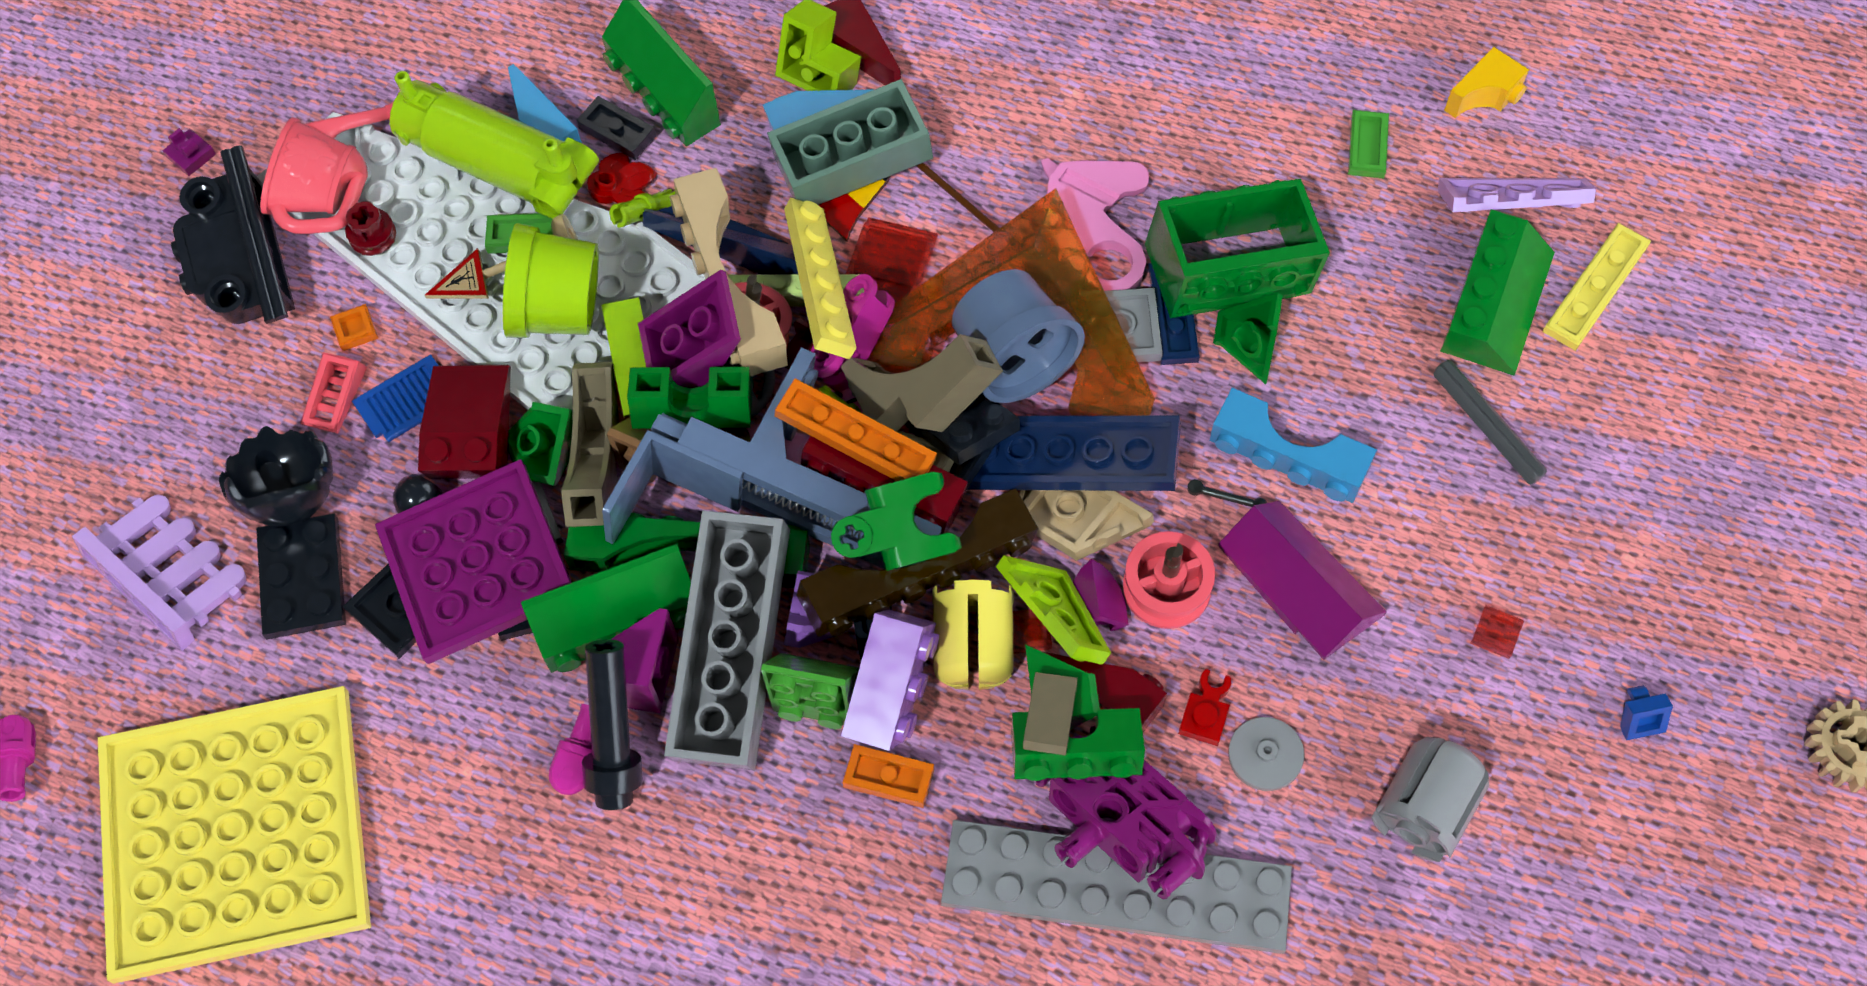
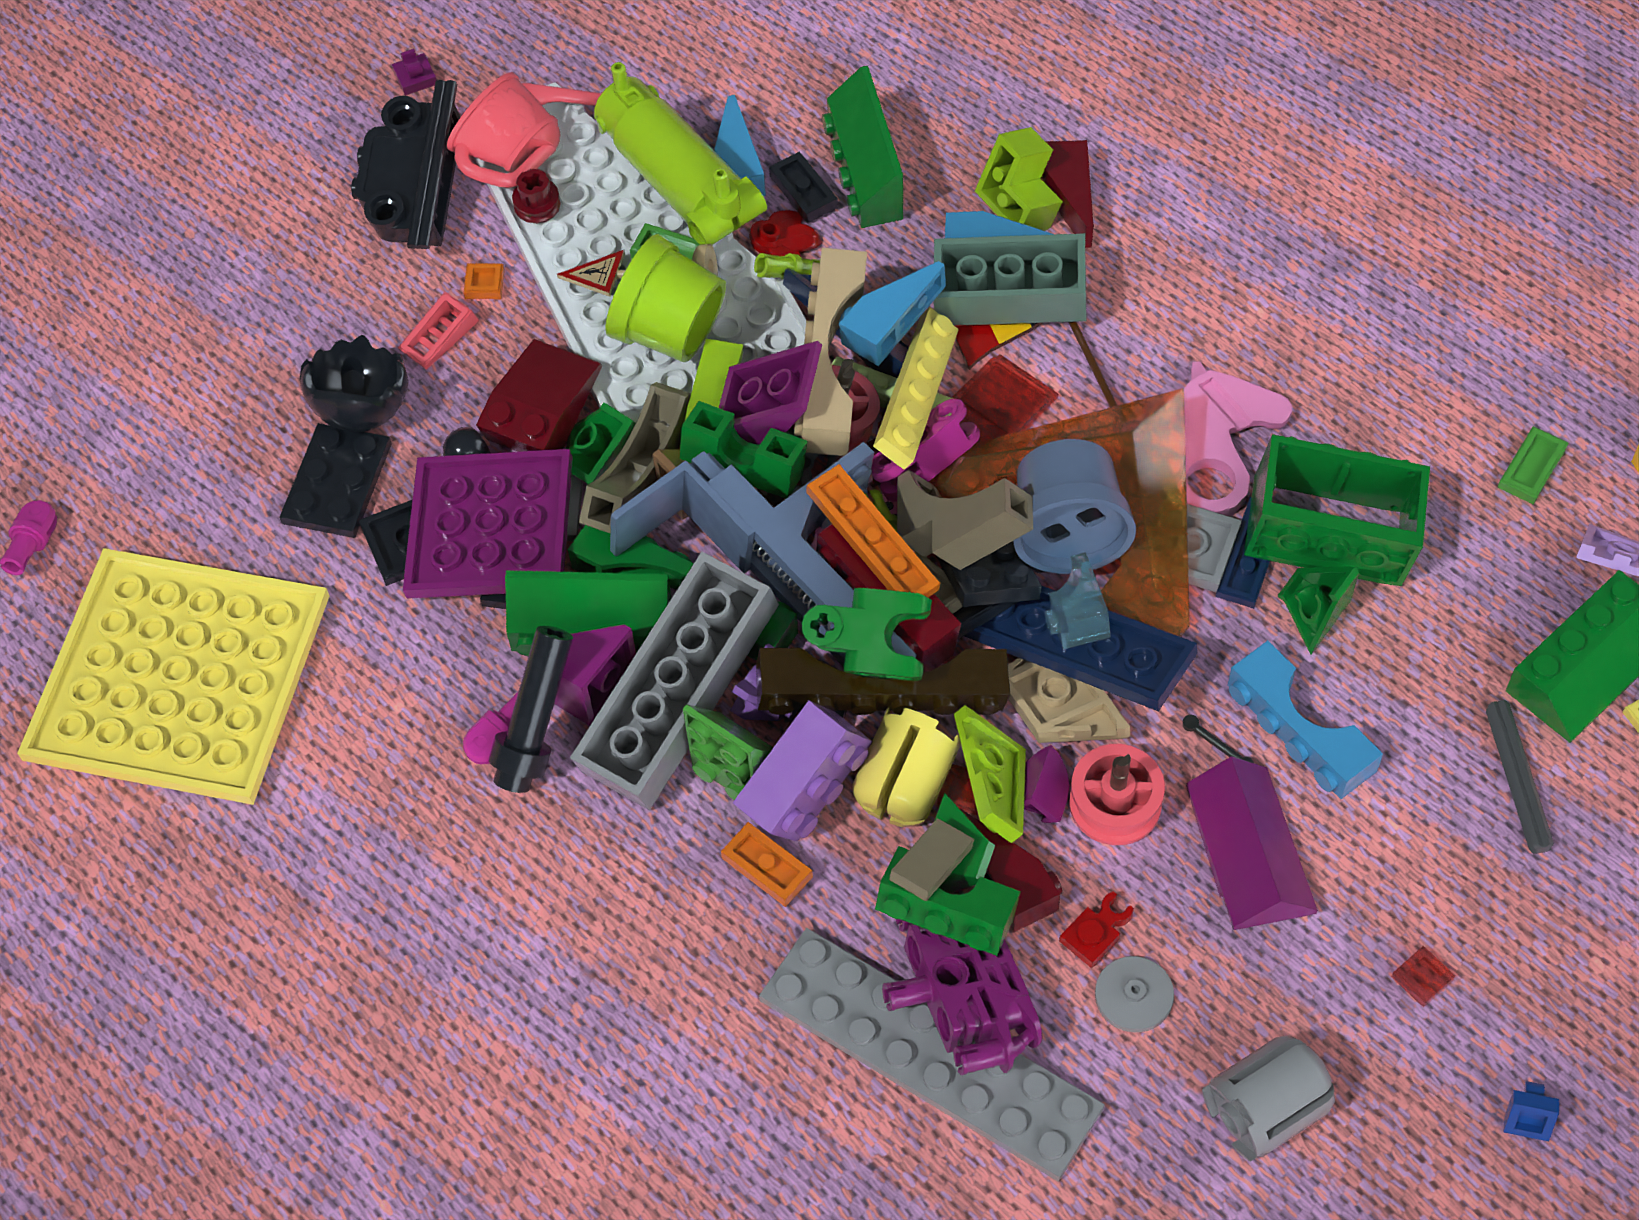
camera: 25 degrees right, 5 degrees down
(152, 596) = (218, 442): lavender fence -> none
(397, 402) = (486, 361): blue window -> none
(761, 217) = (889, 312): none -> dark azure slope
(1064, 425) = (1078, 607): none -> clear light blue arch

